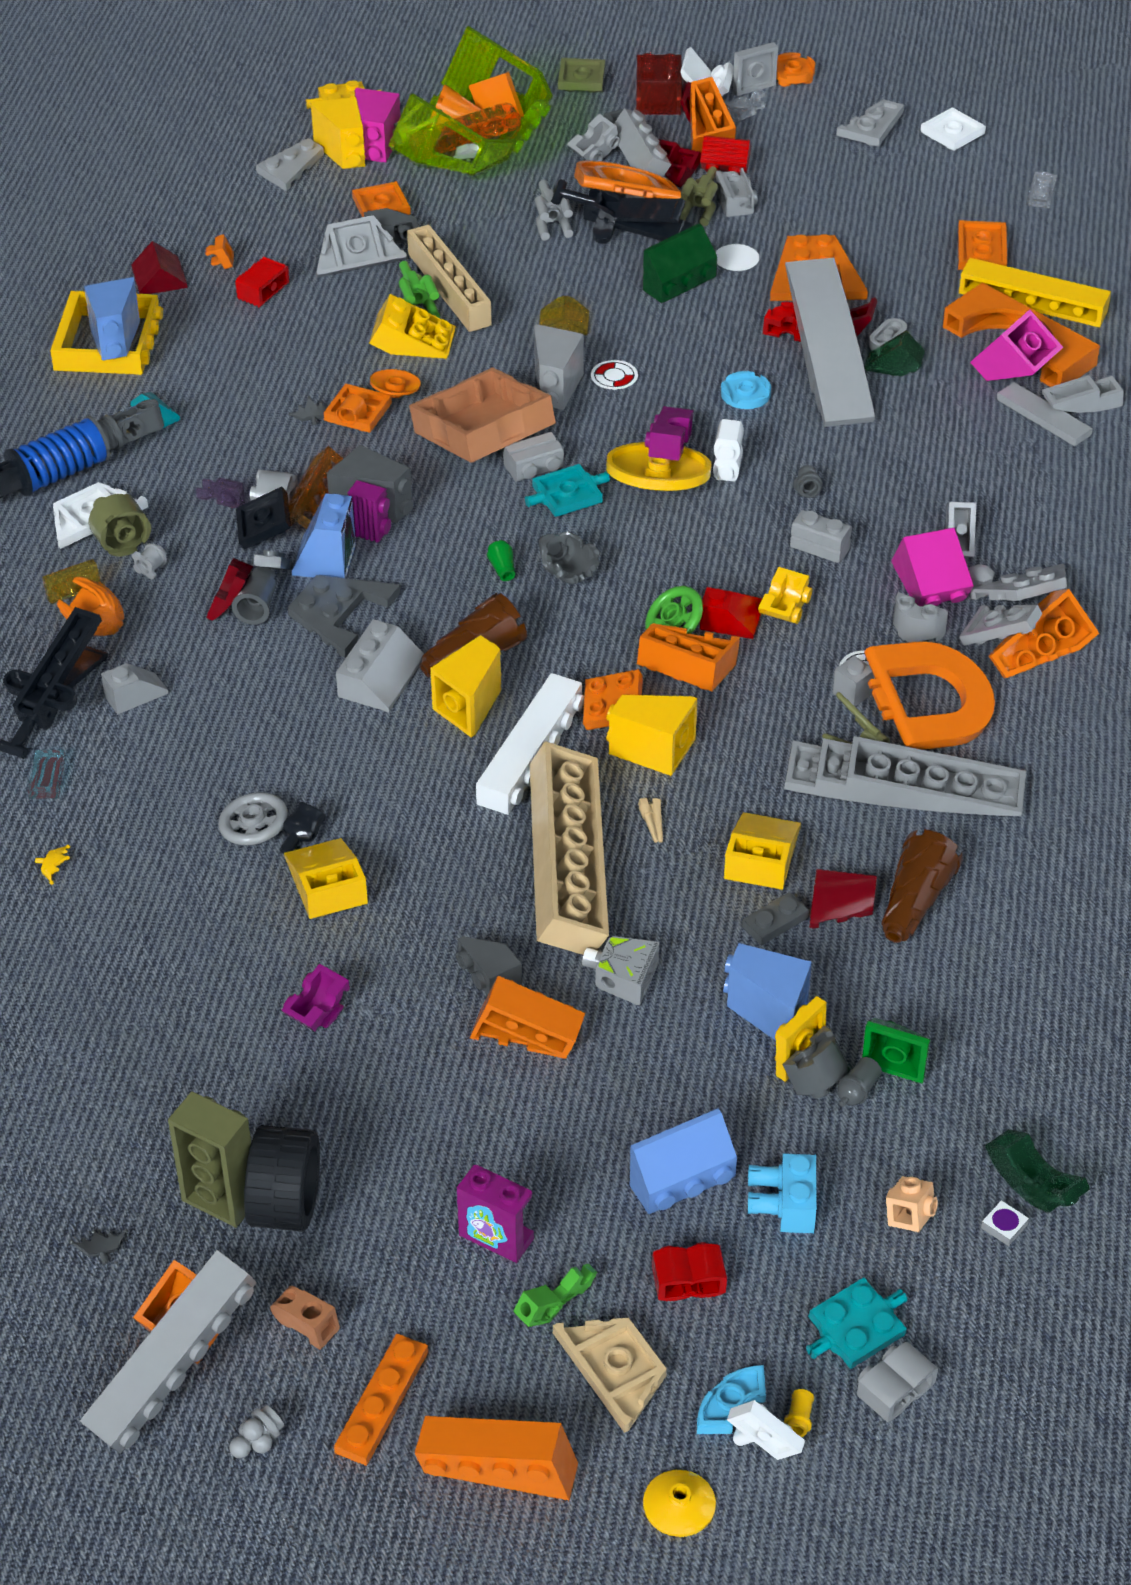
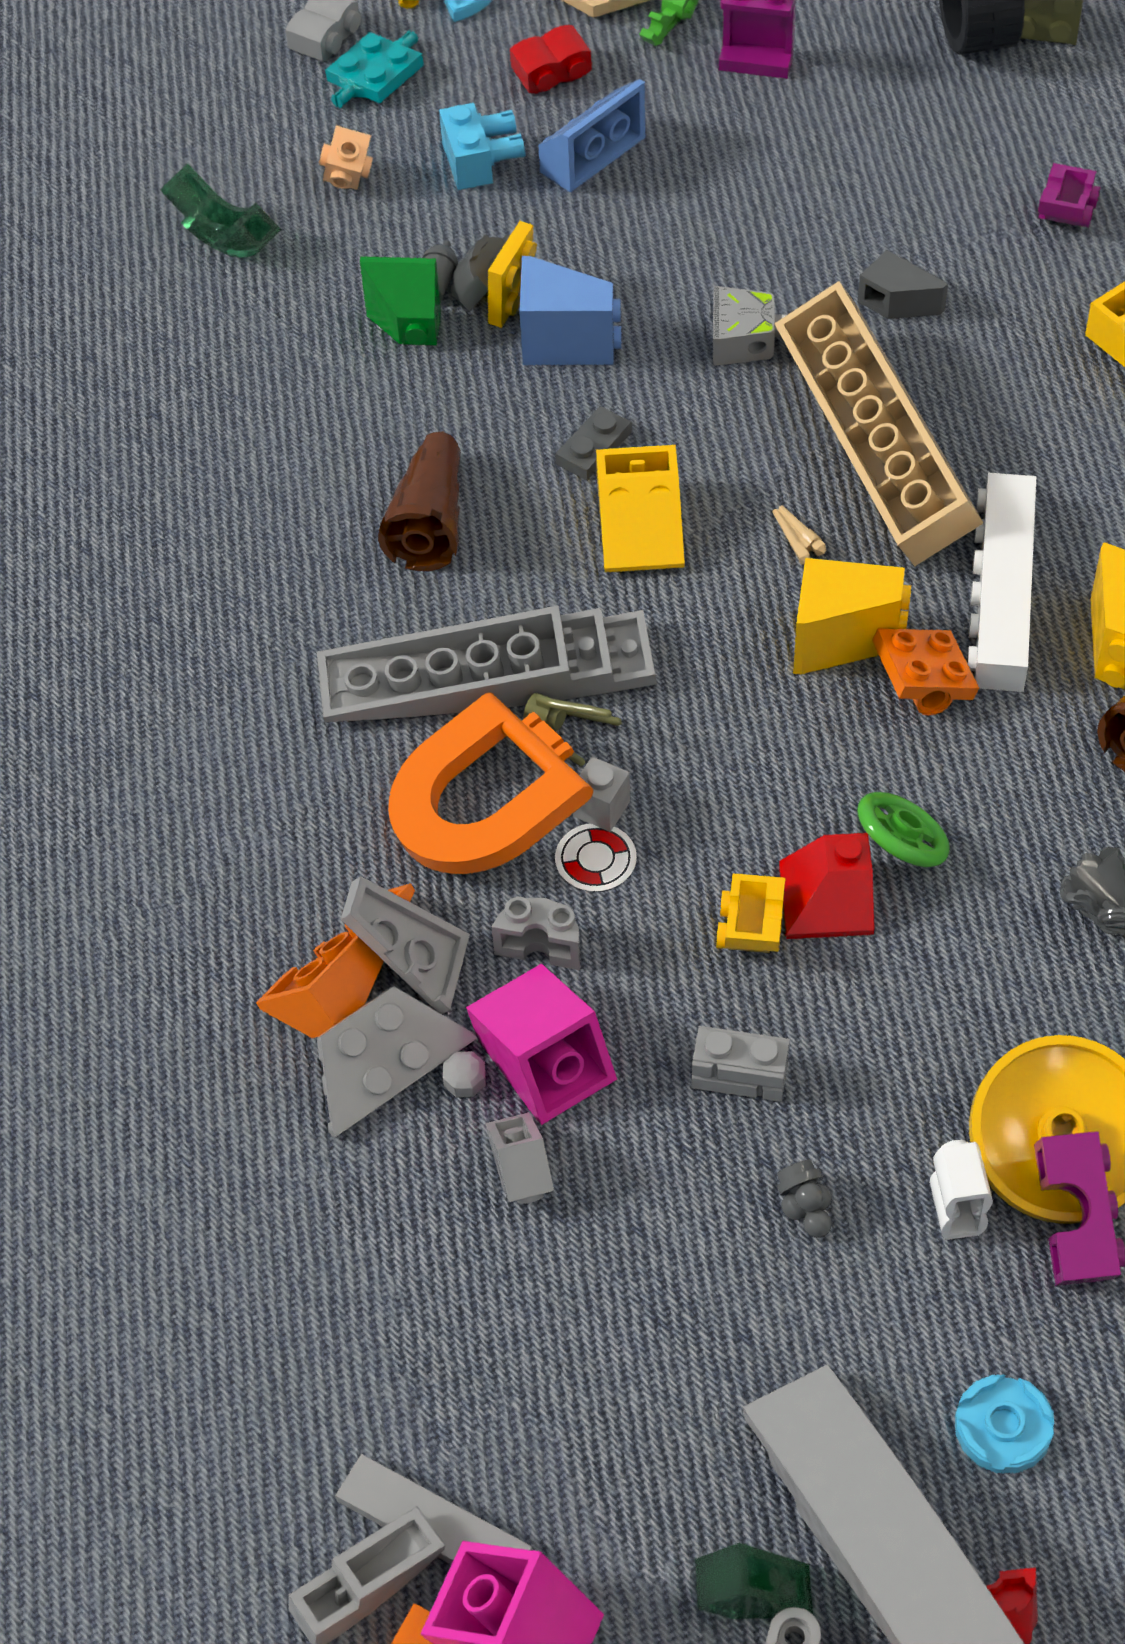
camera: 165 degrees right, 10 degrees up
(528, 1019) = (824, 230): orange wedge -> none
(687, 656) = (846, 760): orange wedge -> none
(841, 896) = (521, 482): dark red slope -> none
(1004, 1223) = (247, 187): tile -> none

